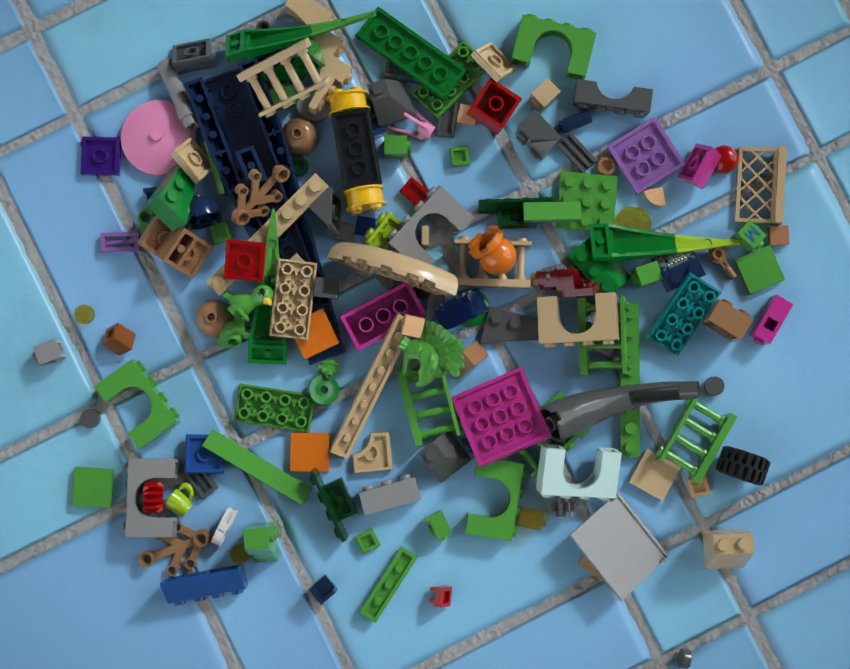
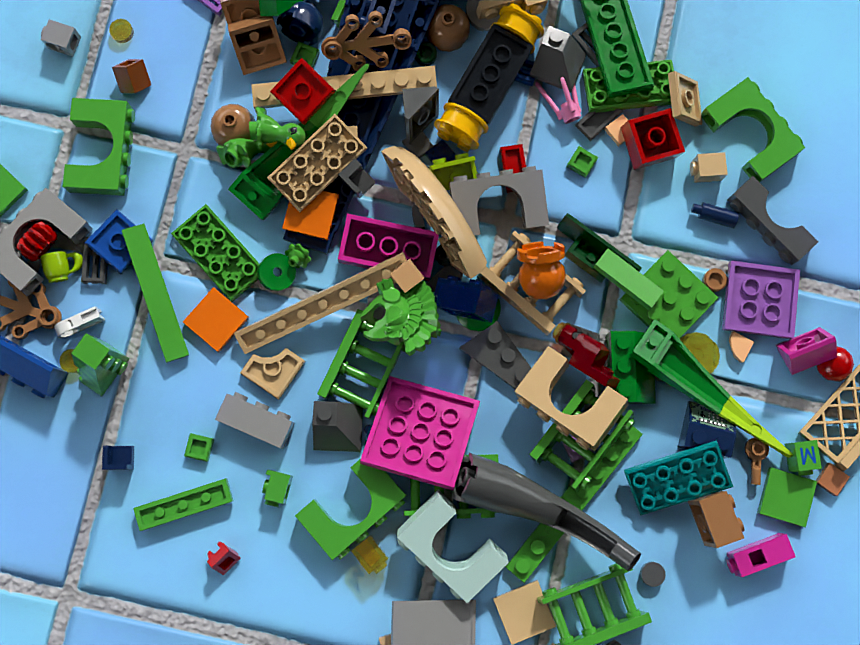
camera: 35 degrees right, 5 degrees down
(90, 418) = (46, 126): dark grey tile -> none
(336, 500) = (200, 384): dark green bracket -> none
(396, 146) = (530, 105): bright green brick -> none
(425, 236) = (489, 207): tan tile -> none
(472, 356) = (437, 354): medium nougat slope -> none
(537, 135) = (672, 197): dark grey slope -> none
(563, 507) = (409, 569): dark grey gear -> none
(566, 141) = (705, 245): dark grey tile -> none
(646, 274) = (672, 411): bright green brick -> none

